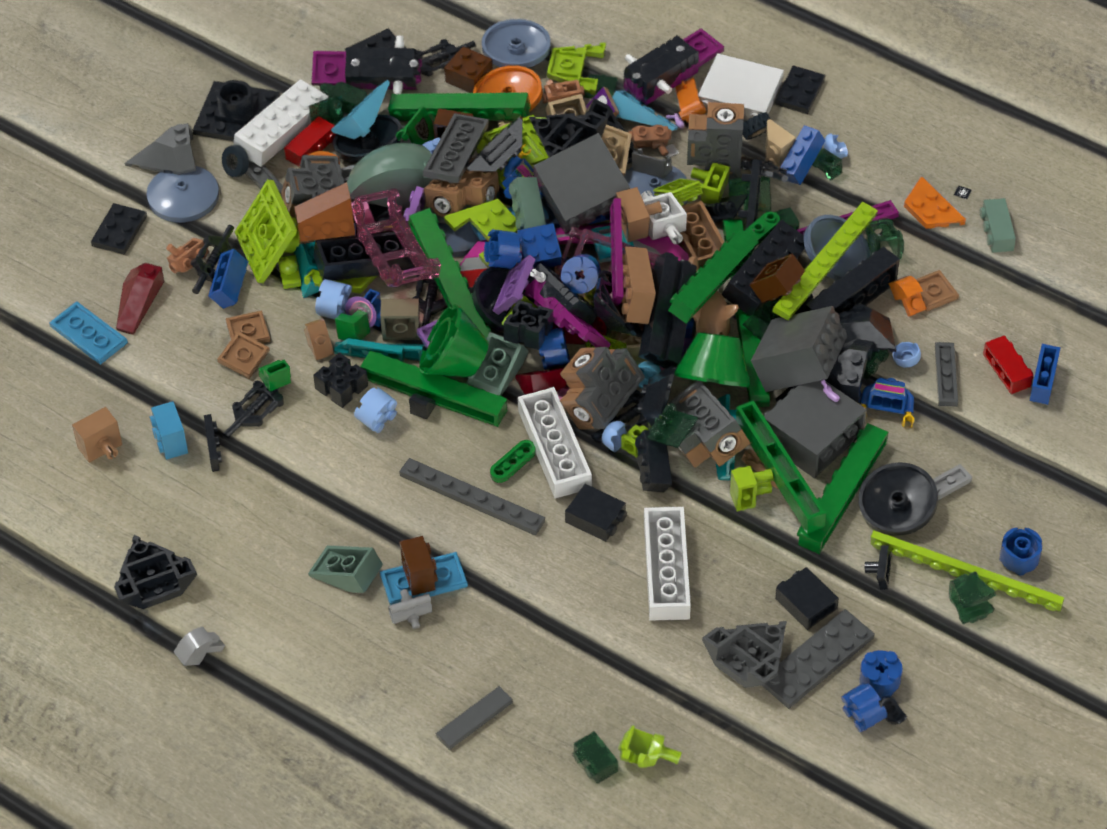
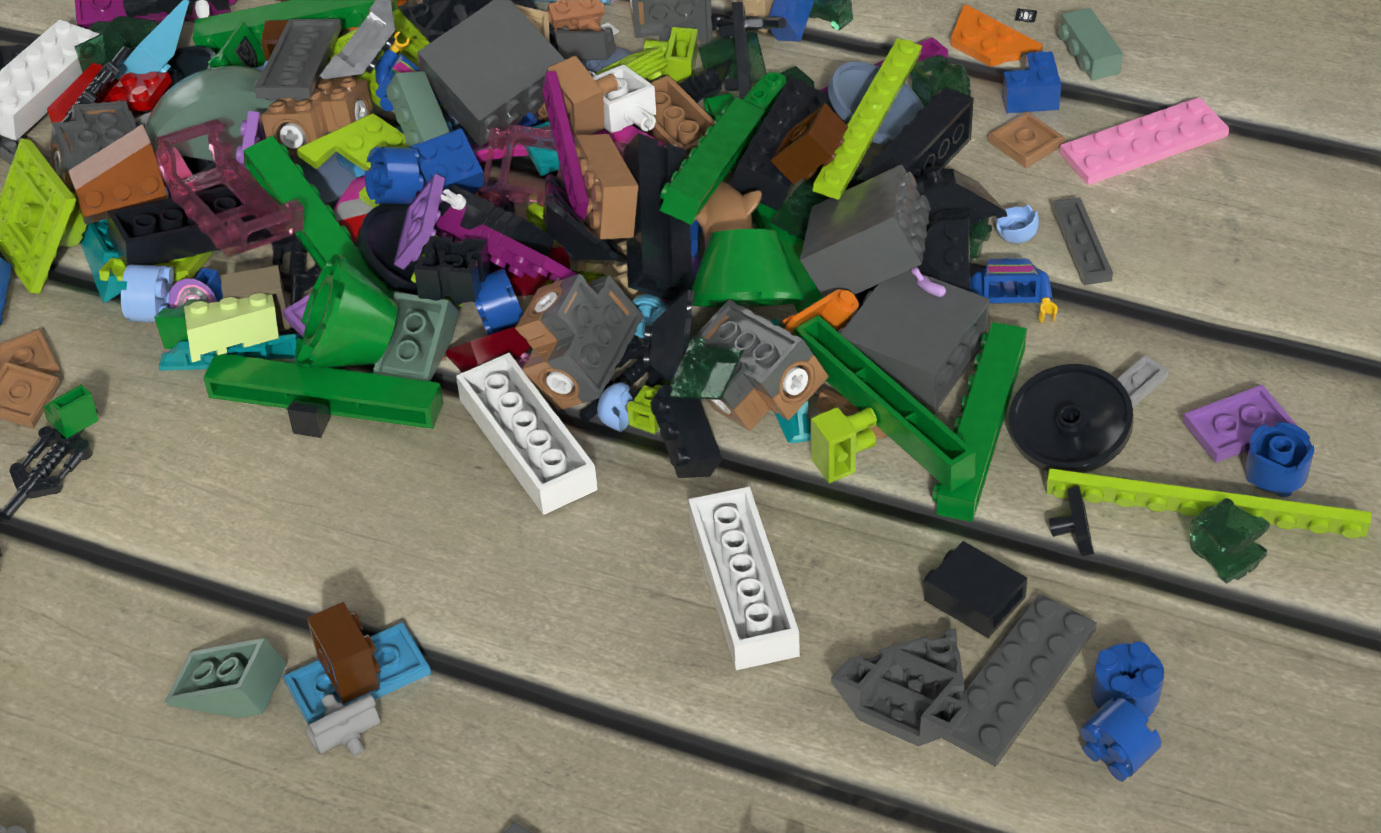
camera: 10 degrees left, 5 degrees down
(289, 272) = (77, 271): lime tile -> none
(318, 339) = (133, 350): medium nougat brick -> none
(319, 138) = (101, 80): none -> black bar
(340, 380) = (176, 403): black brick -> none
(345, 146) = (139, 90): none -> red plate
(376, 409) = (238, 433): light blue brick -> none
(382, 333) = (230, 323): none -> yellowish green wedge
(472, 496) = (413, 535): dark grey plate -> none
(515, 455) = (453, 485): green plate -> none
(571, 269) = (512, 171): blue brick -> none
(595, 512) = (612, 523): black brick -> none
(764, 398) = (834, 309): none -> orange door
(895, 714) = (1173, 742): black hair -> none
(908, 291) = (996, 142): orange brick -> none
(948, 253) = (1033, 88): none -> blue brick
(997, 519) = (1228, 424): none -> medium lavender plate
(1008, 364) = (1166, 213): red brick -> none
(1012, 306) = (1143, 140): none -> bright pink plate
(1045, 374) = (1225, 214): blue brick -> none

